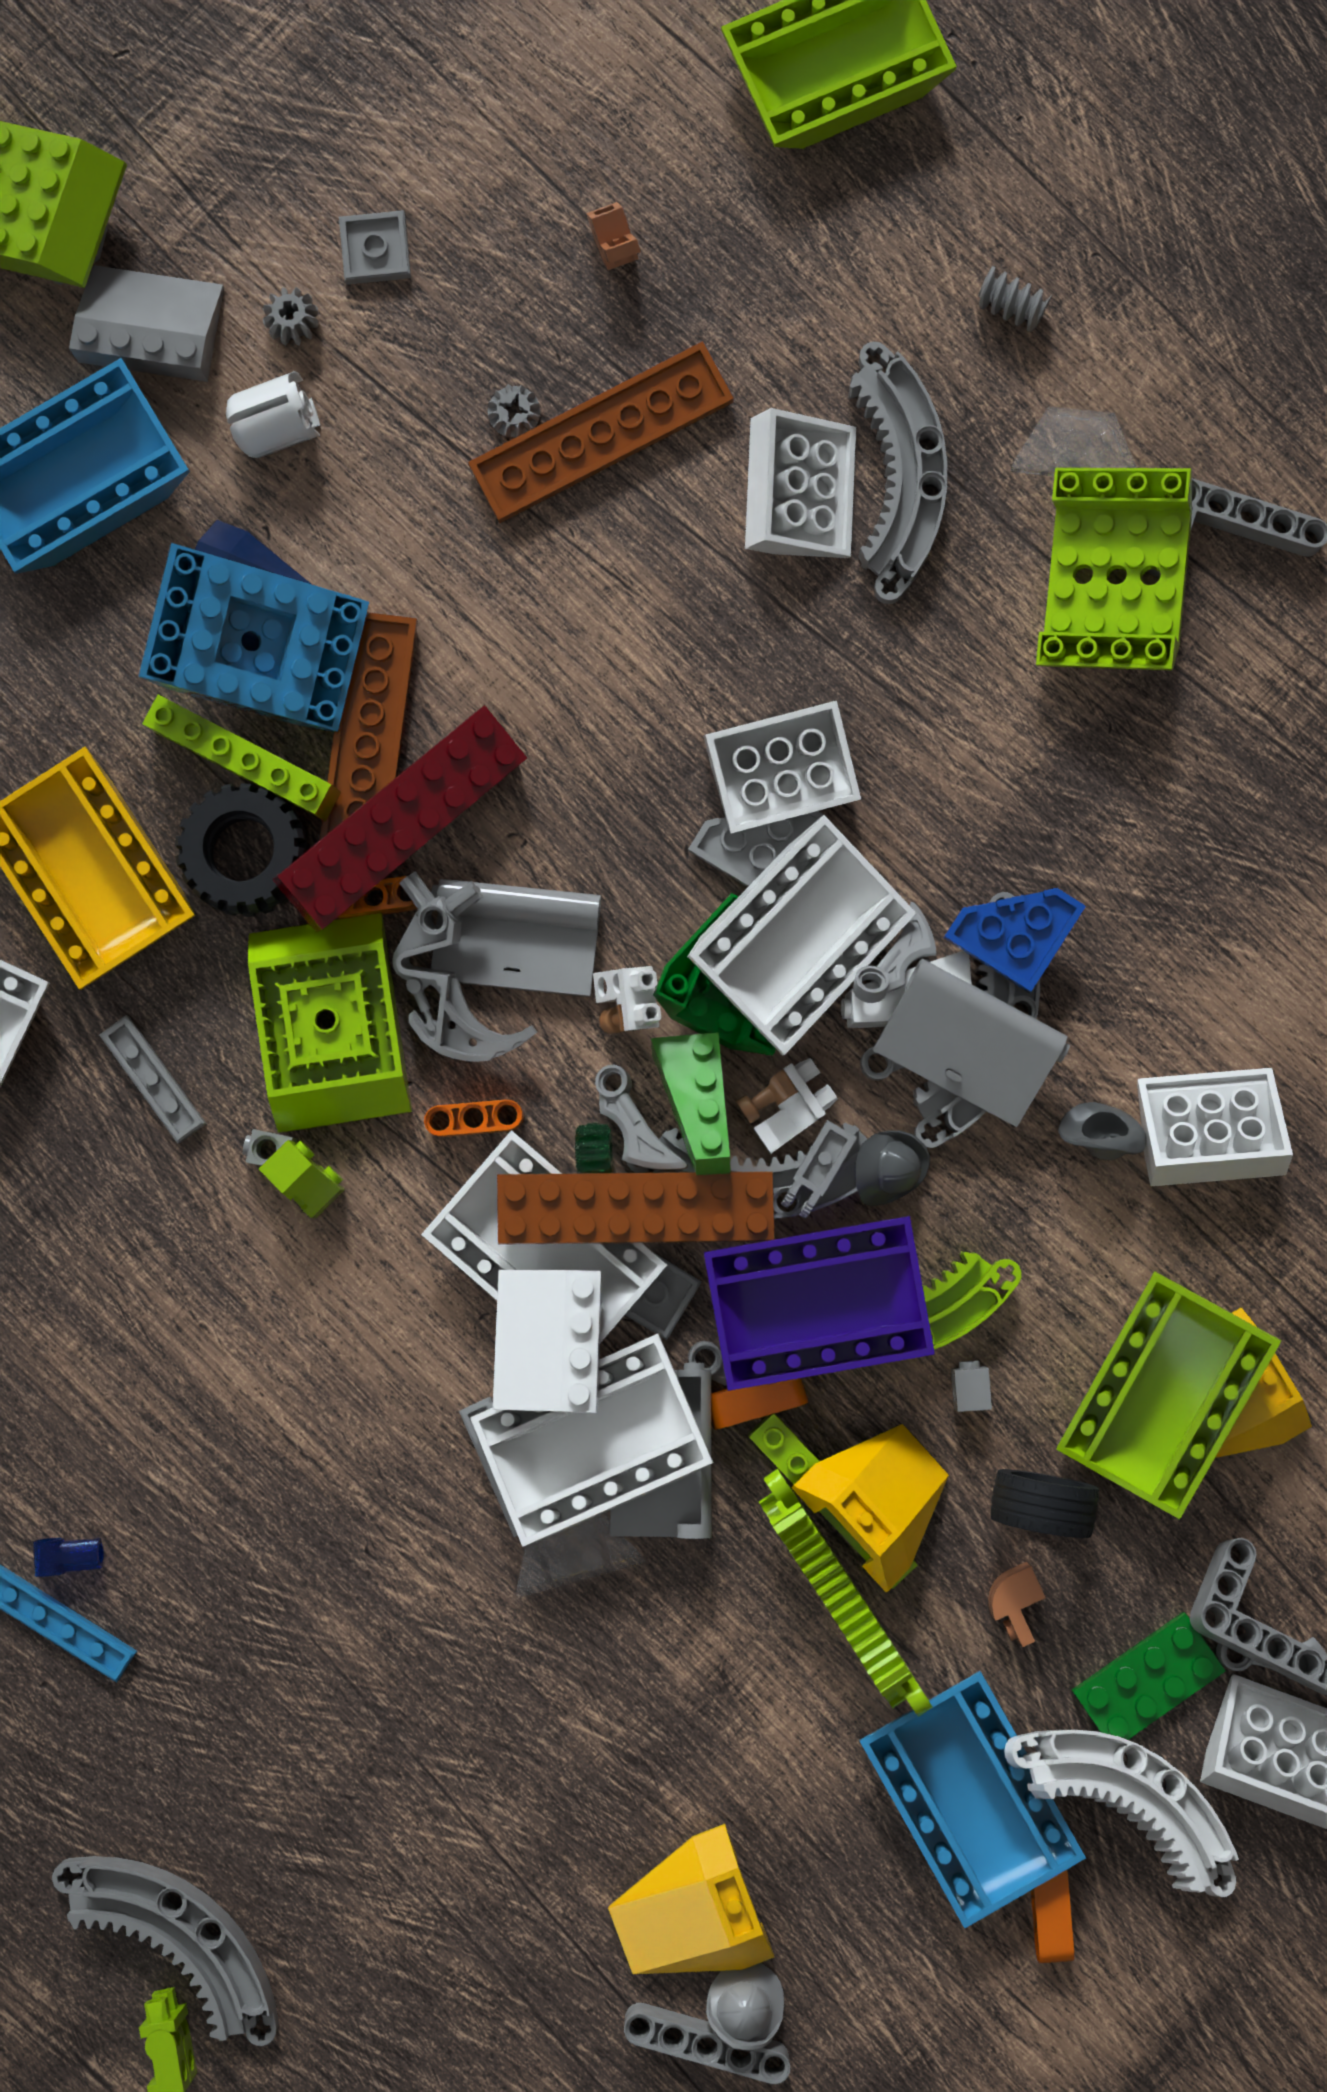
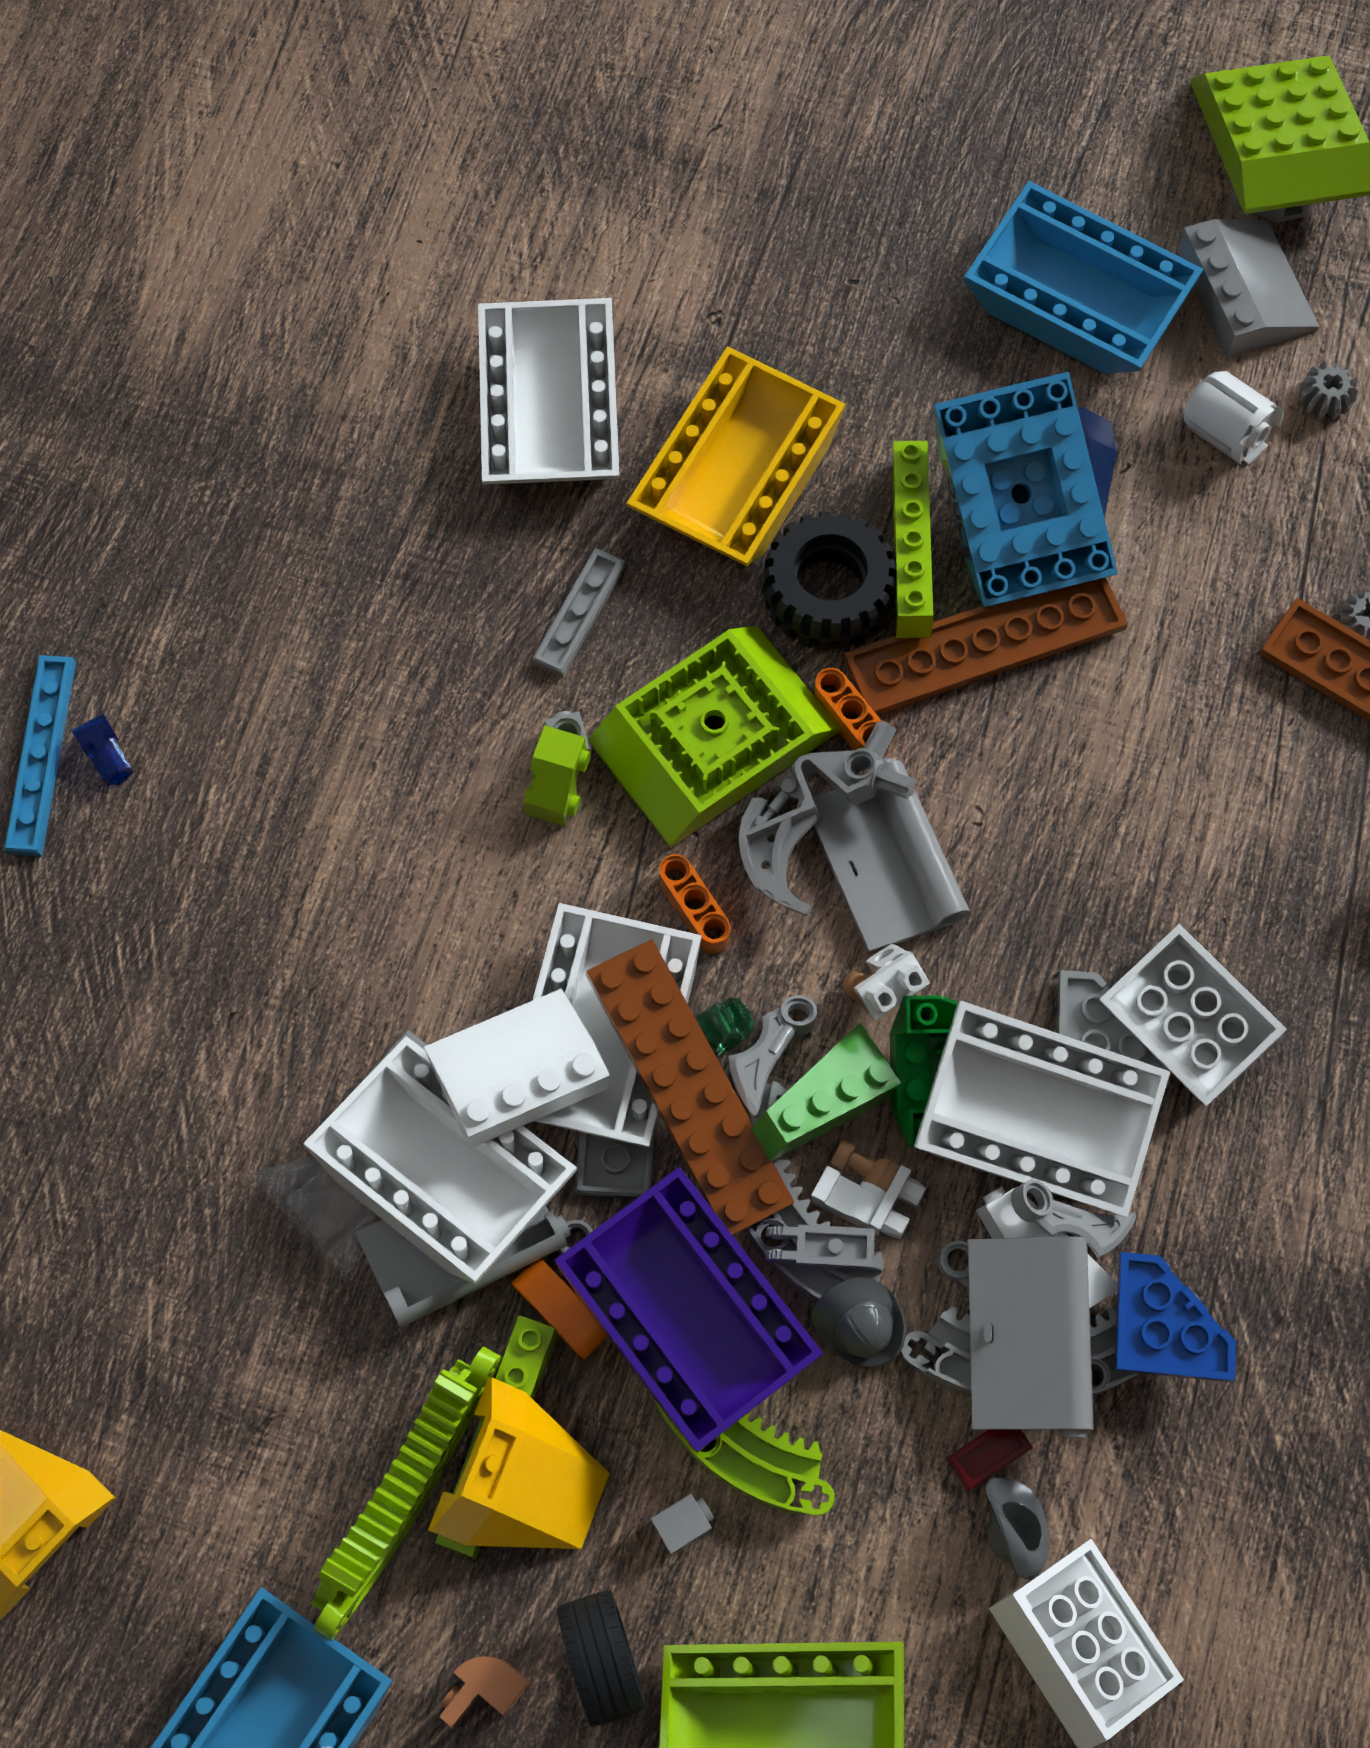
camera: 60 degrees right, 15 degrees down
(399, 819) = (938, 692): dark red brick -> none
(1037, 1125) = (988, 1455): none -> dark red tile

